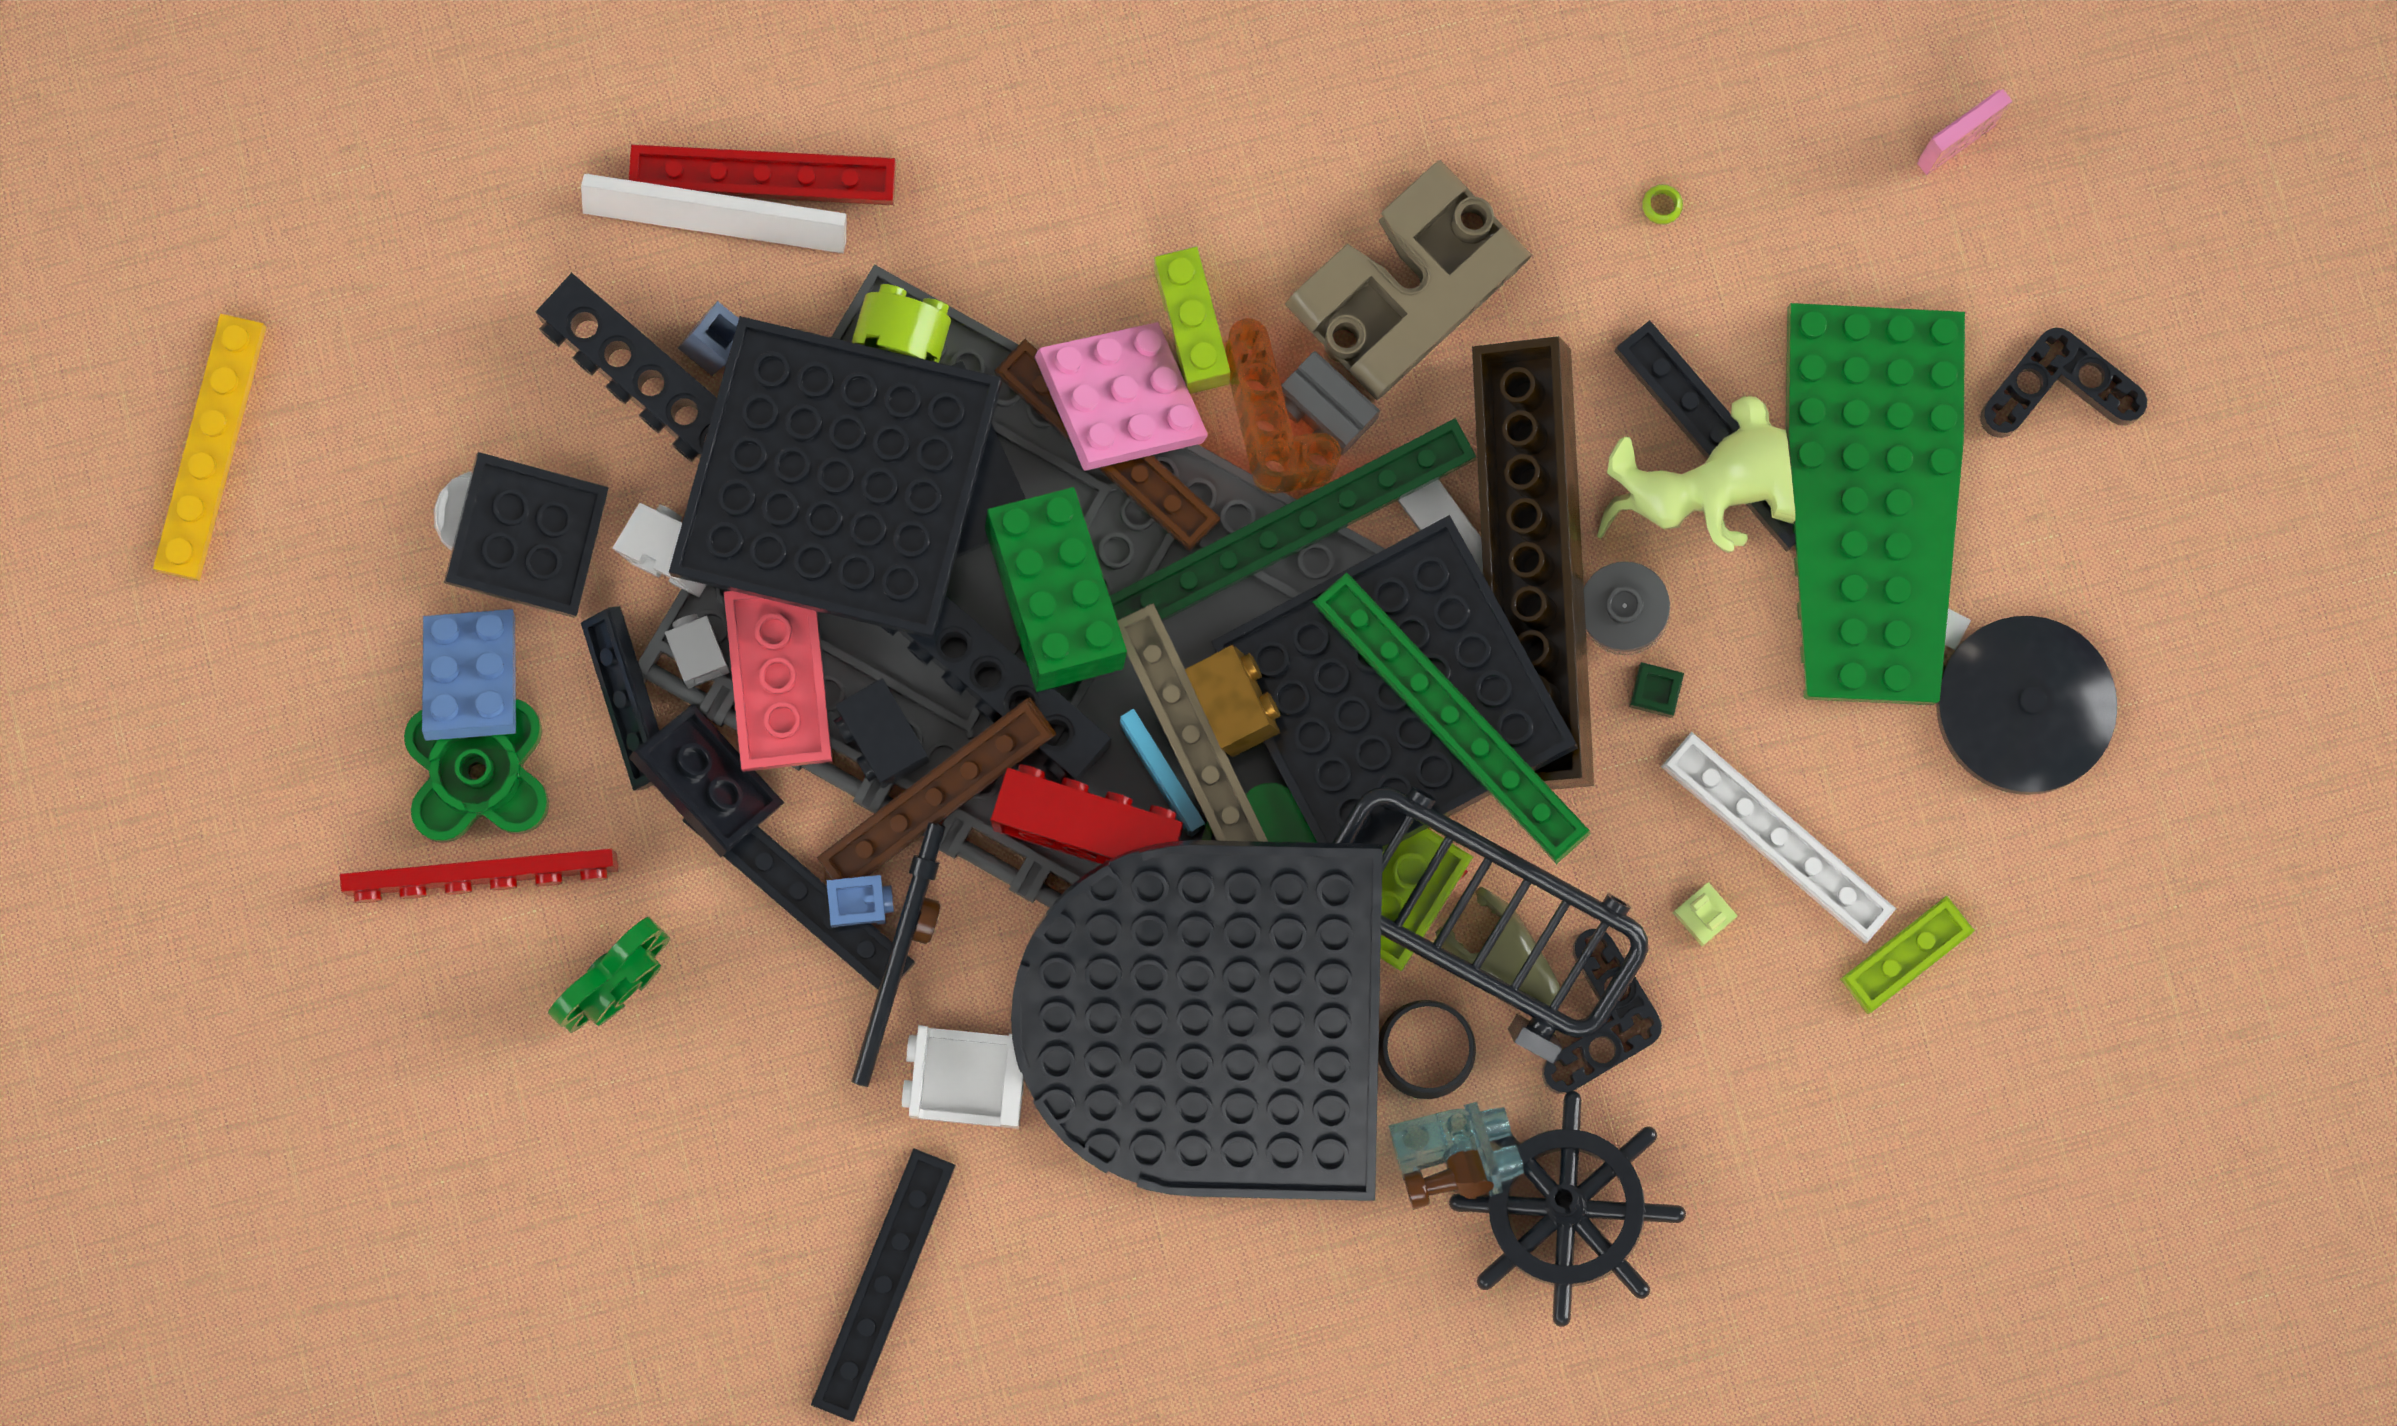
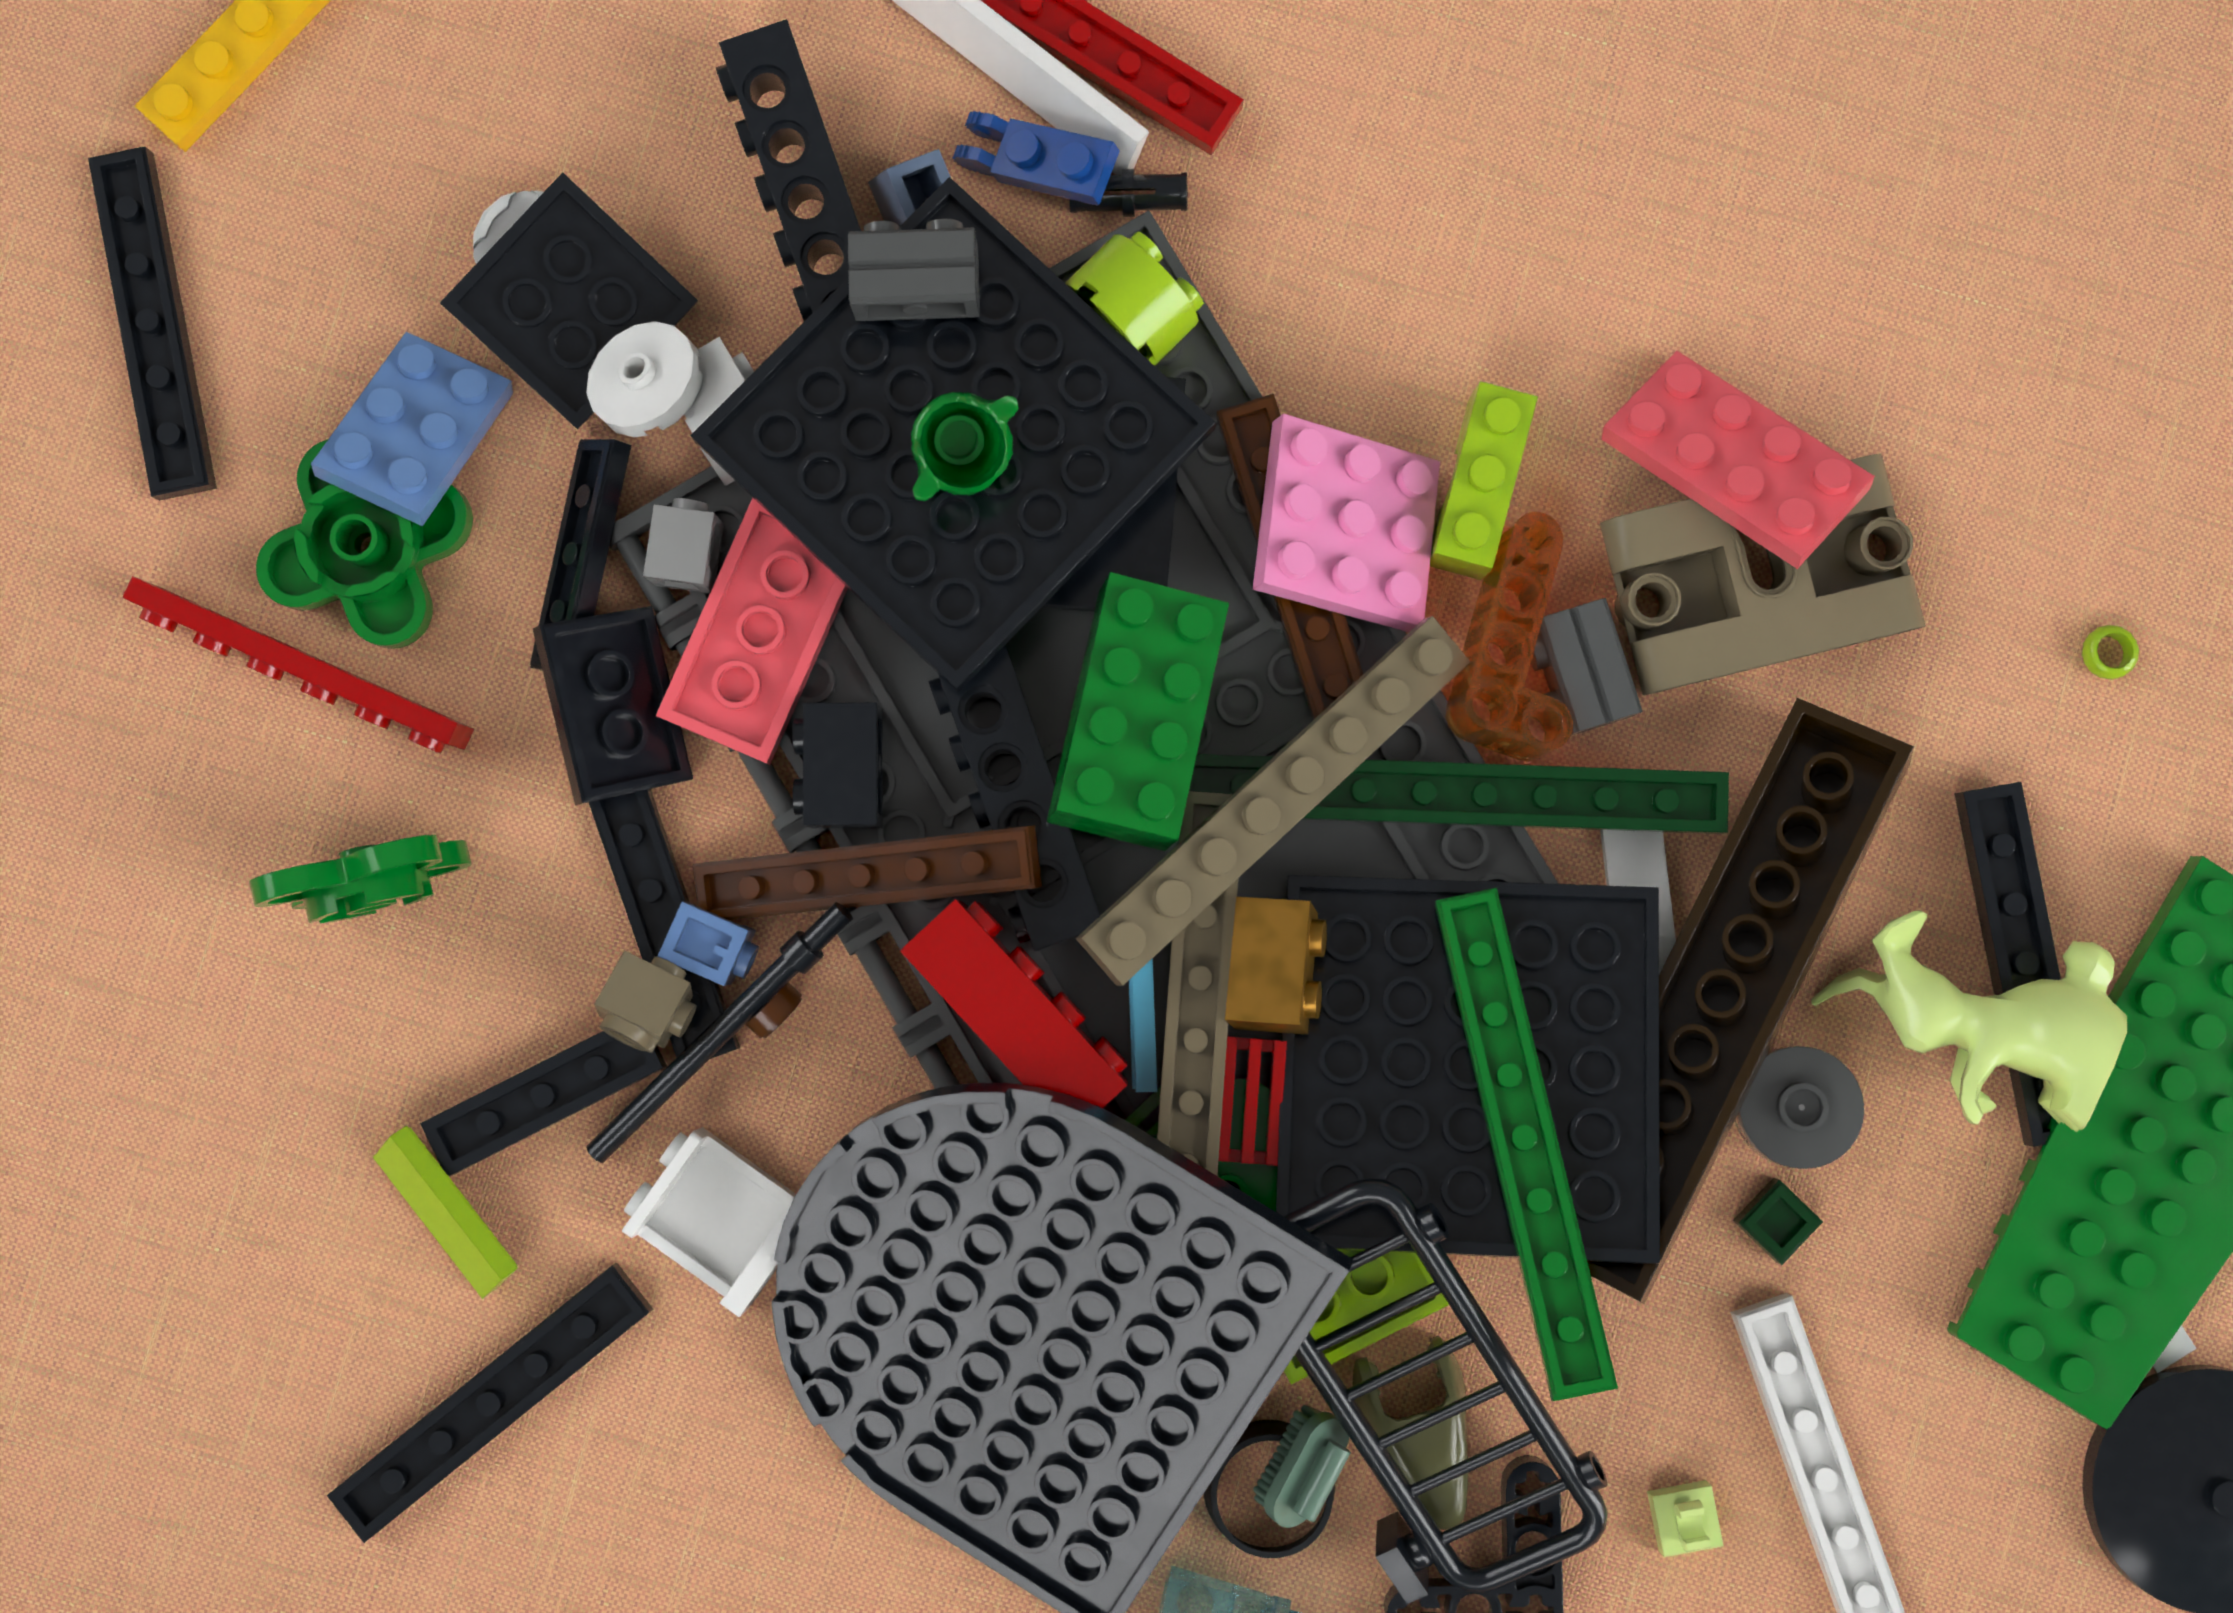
camera: 35 degrees right, 5 degrees up
(245, 706) = (152, 323): none -> black tile
(621, 568) = (644, 379): none -> white plate
(755, 388) = (913, 271): none -> dark grey brick
(783, 269) = (1040, 158): none -> blue hinge
(783, 1175) = (445, 1211): none -> lime tile
(804, 1062) = (536, 1100): none -> black plate
(840, 958) = (645, 1002): none -> dark tan brick
(850, 478) = (961, 443): none -> green hair
(881, 246) = (1169, 195): none -> black pin
(1174, 595) = (1272, 802): none -> dark tan plate
(1251, 760) = (1254, 1048): none -> red tile
(1347, 214) = (1737, 459): none -> coral plate
(1437, 1014) = (1303, 1468): none -> sand green piece

